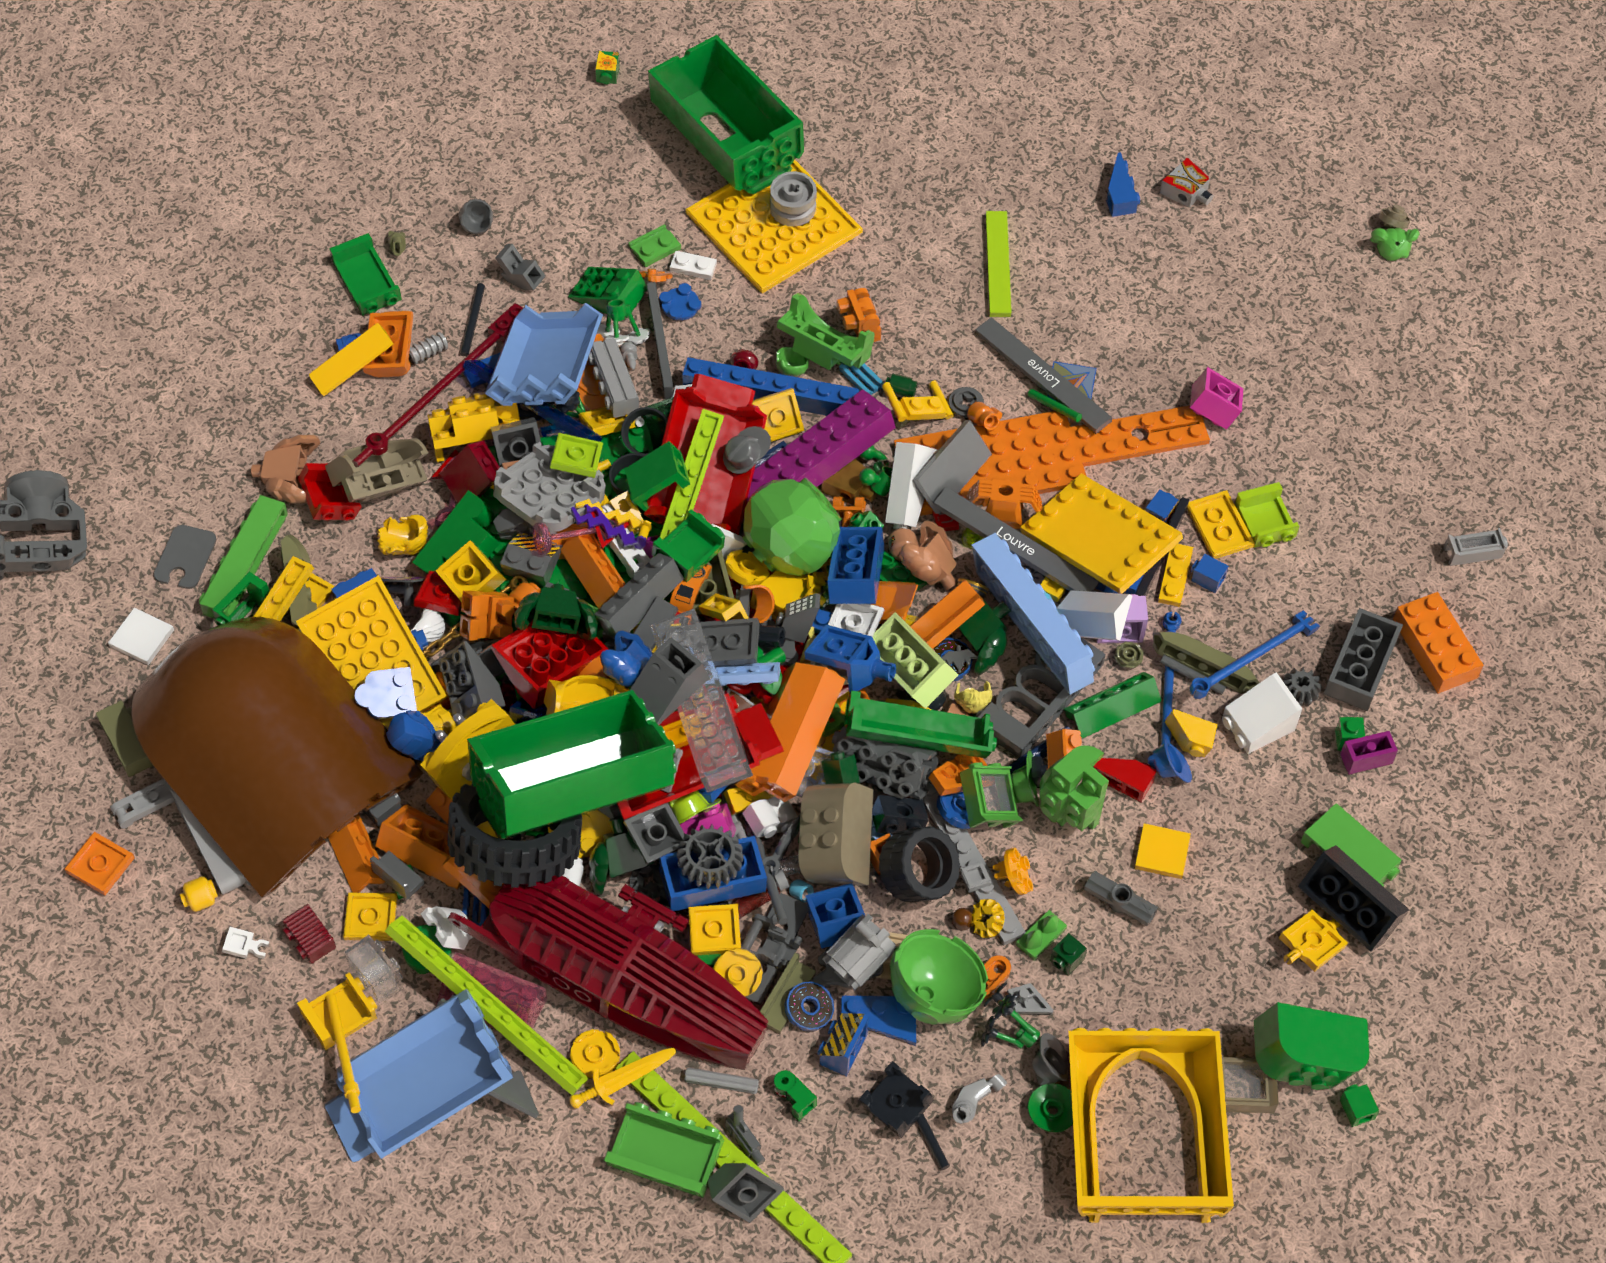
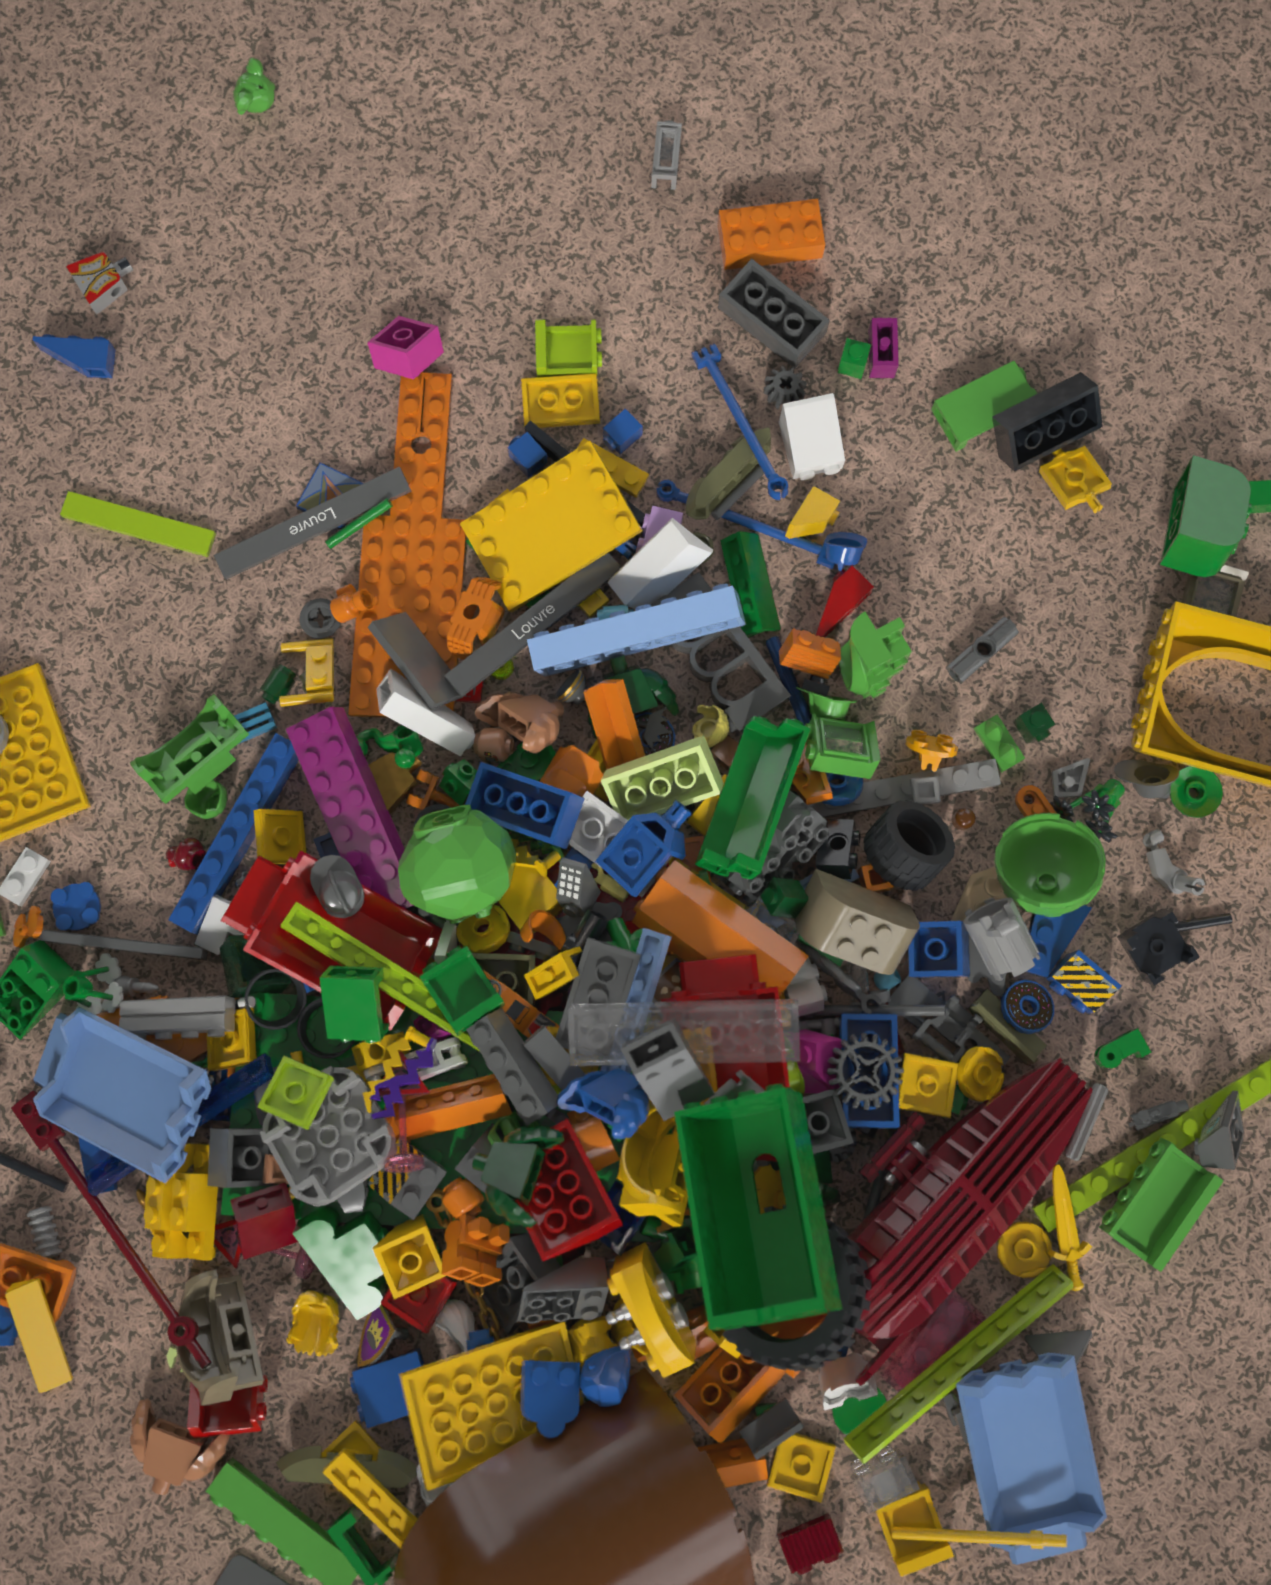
camera: 75 degrees left, 20 degrees up
(860, 312) = (170, 699): orange hips -> none
(994, 923) = (967, 786): yellow gear -> none
(1162, 851) = (934, 591): yellow tile -> none
(1394, 217) = (221, 77): dark tan plate -> none

